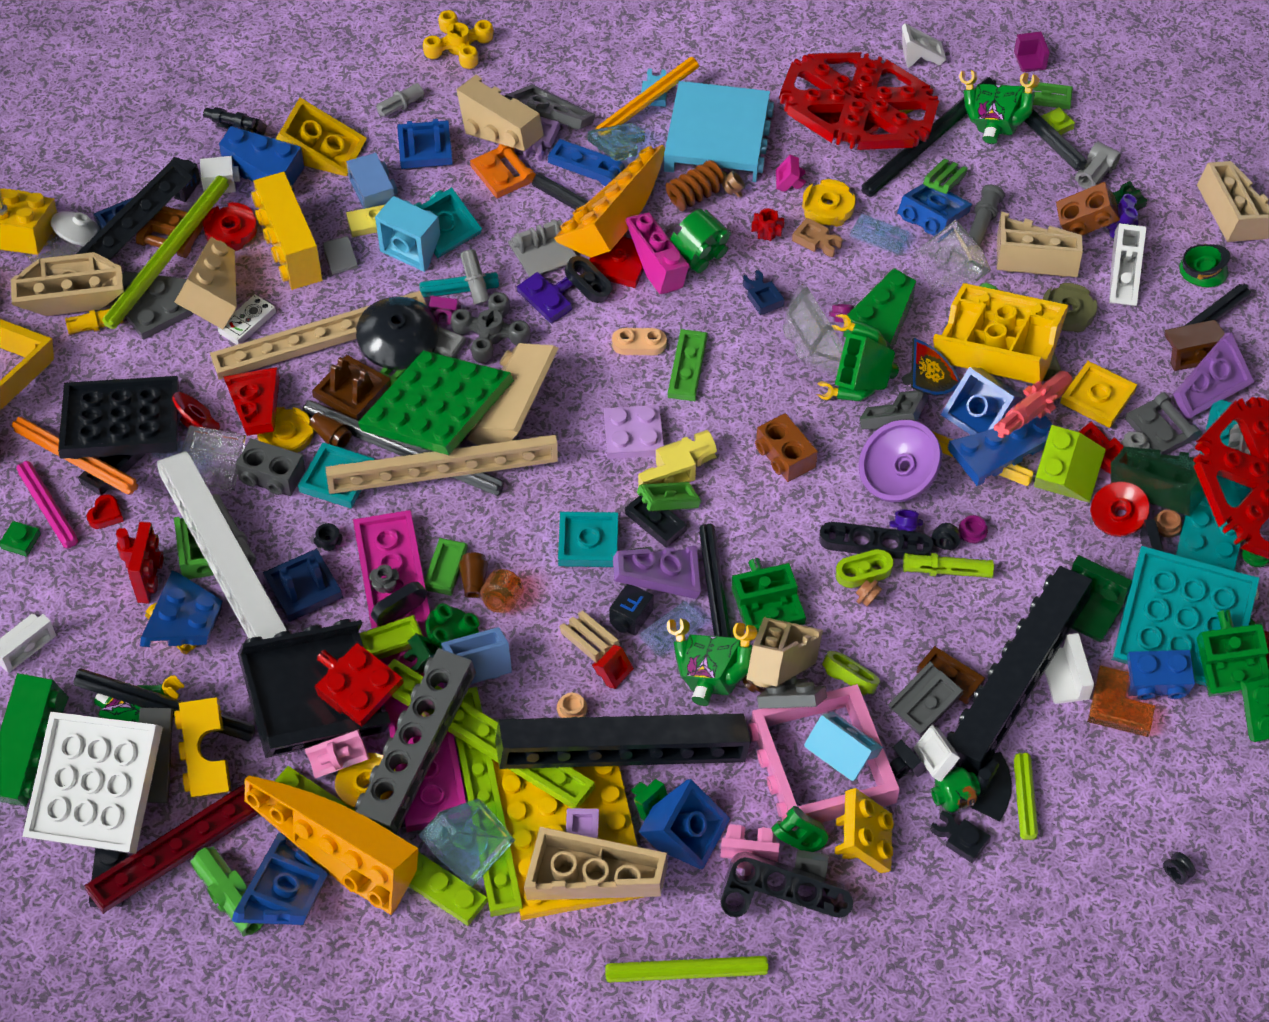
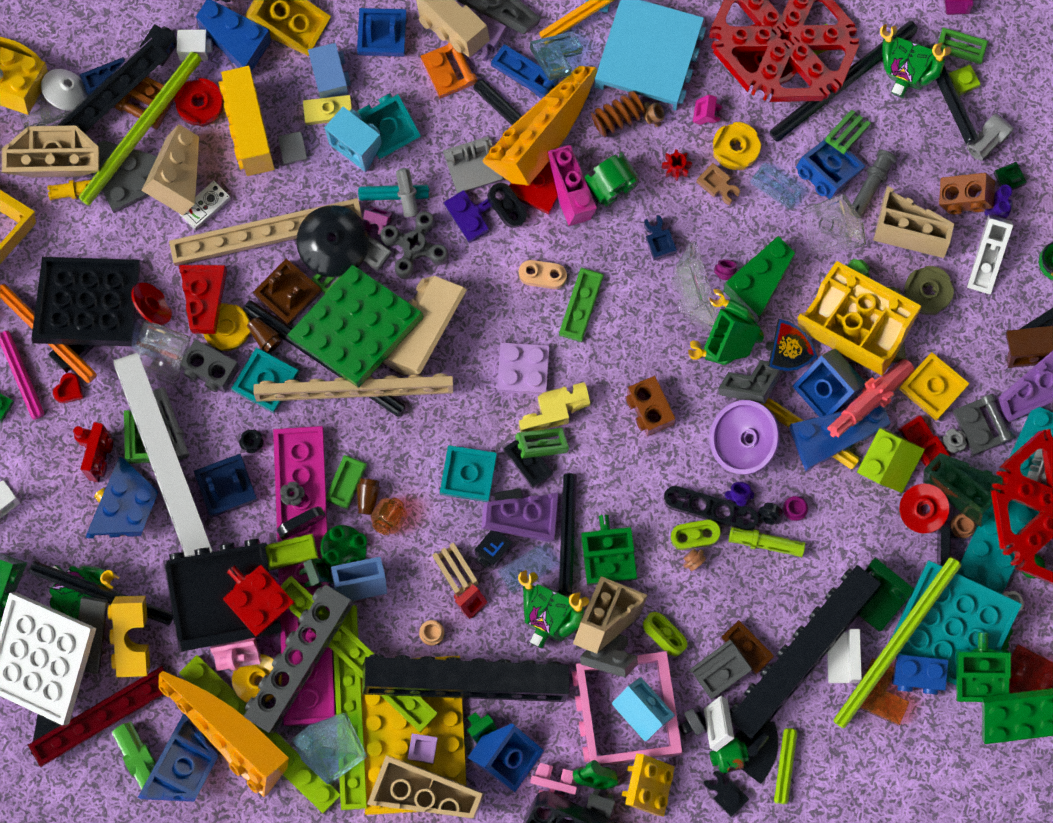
camera: 10 degrees right, 20 degrees up
(1125, 639) = (897, 642): none -> lime axle

